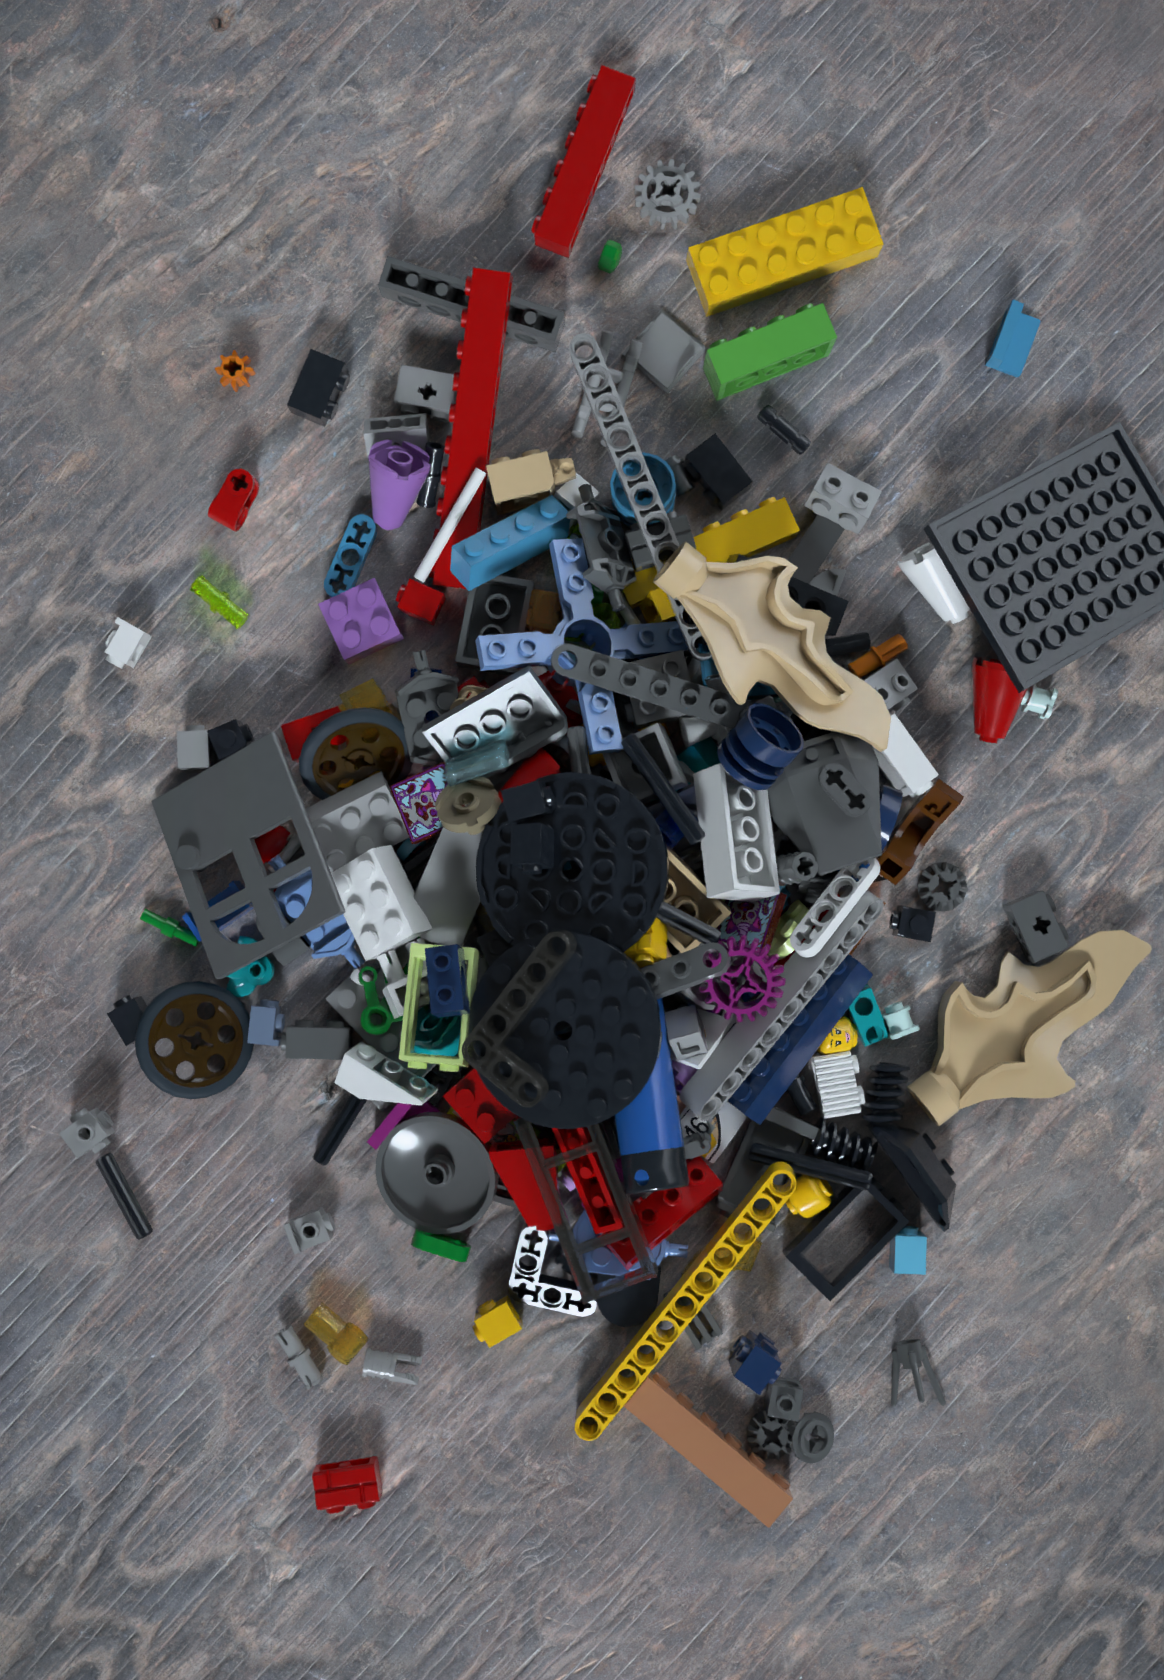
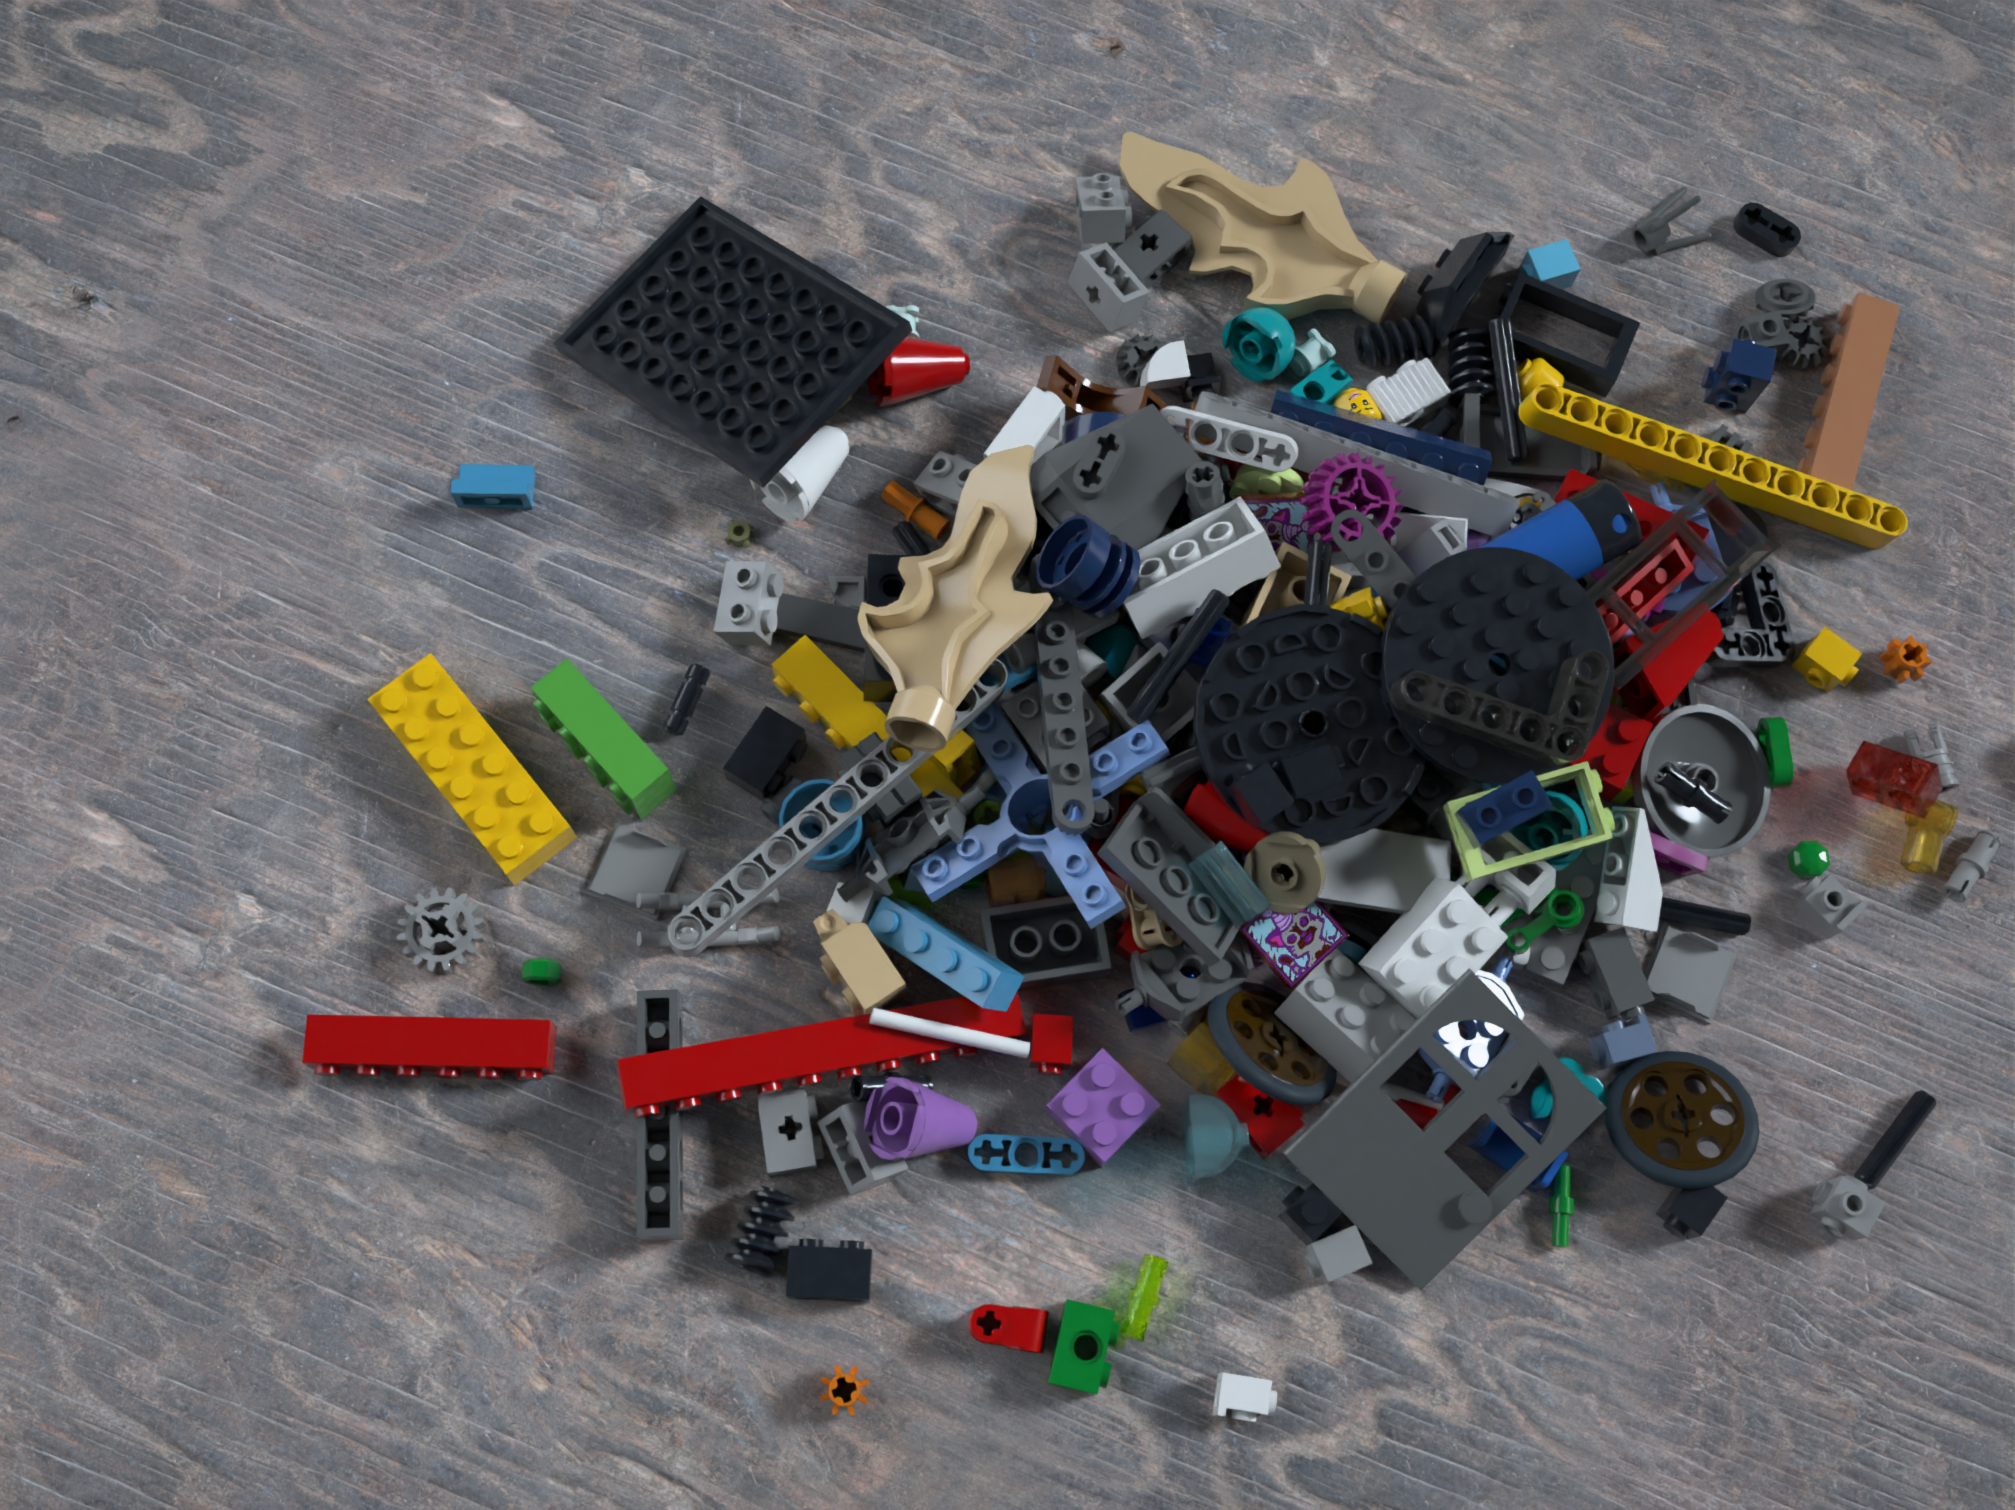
camera: 115 degrees left, 15 degrees down
(188, 531) = (1066, 1368): none -> green brick
(302, 1100) = (1688, 972): none -> light grey piece
(307, 687) = (1210, 1137): none -> clear light blue brick
(350, 1232) = (1808, 859): none -> green tile
(363, 352) = (762, 1230): none -> black piece
(382, 1323) = (1894, 779): none -> clear red brick
(426, 1157) = (1693, 792): none -> black pin
(469, 1390) = (1905, 659): none -> orange gear
(564, 689) = (1103, 821): none -> dark grey cylinder
(877, 1448) = (1767, 229): none -> black beam
(906, 514) = (739, 533): none -> olive piece
(922, 984) = (1259, 343): none -> teal cylinder
(925, 894) = (1166, 367): none -> white brick
(1014, 877) = (1108, 287): none -> light grey brick
(1085, 897) = (1102, 209): none -> light grey brick

